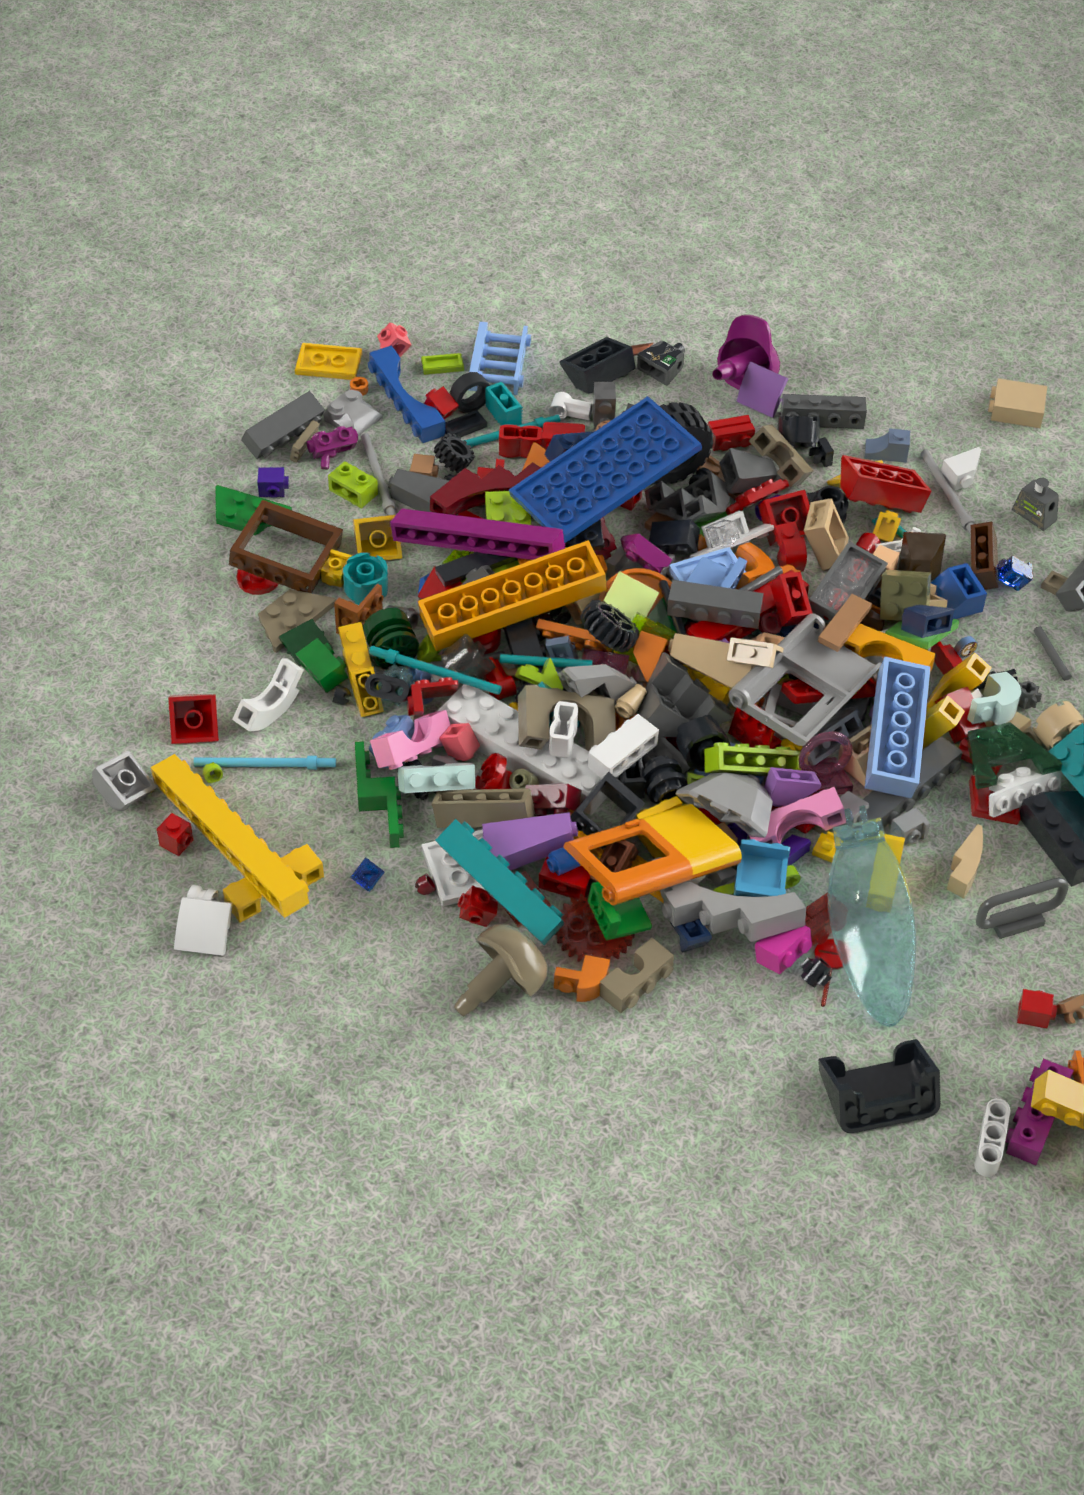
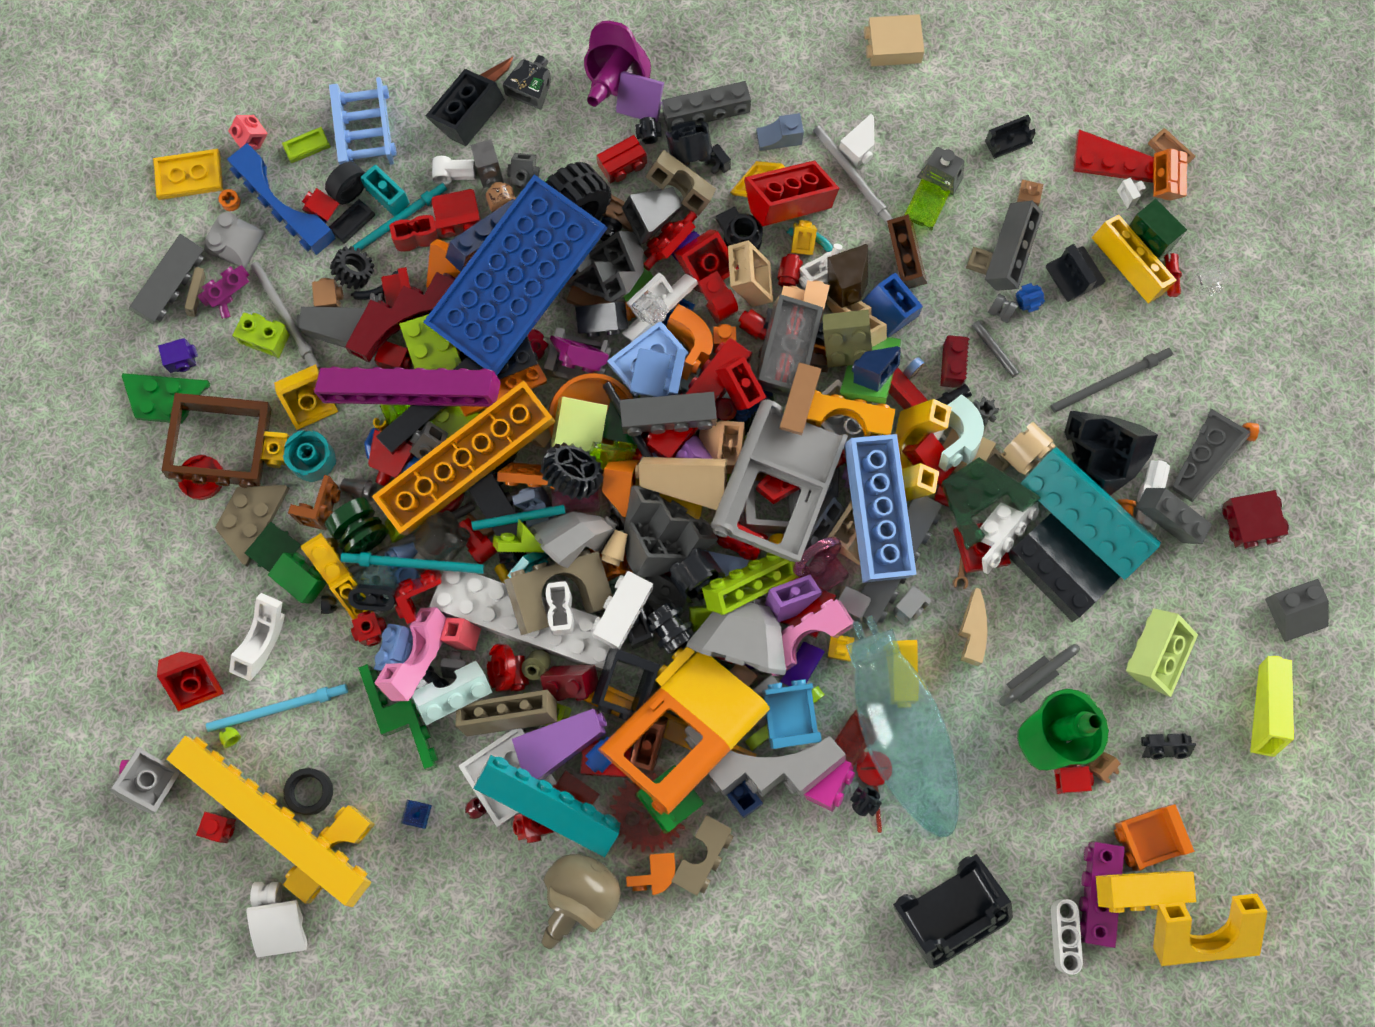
camera: 15 degrees left, 25 degrees up
(274, 816) = (292, 781): none -> black tyre
(373, 718) = (374, 634): none -> red brick
(752, 652) = (723, 473): tan panel -> none
(762, 416) = (648, 130): none -> black gear
(762, 580) = (701, 366): dark grey bar -> none
(814, 575) = (753, 324): none -> red brick
(966, 820) = (961, 575): none -> medium nougat hand
(1008, 648) = (954, 361): none -> dark red brick
(1014, 572) = (940, 264): clear blue brick -> none
(1015, 528) = (927, 204): none -> clear neon green plate
(1033, 950) = (1059, 719): none -> green piece
(1068, 621) = (1006, 312): none -> dark grey wheel

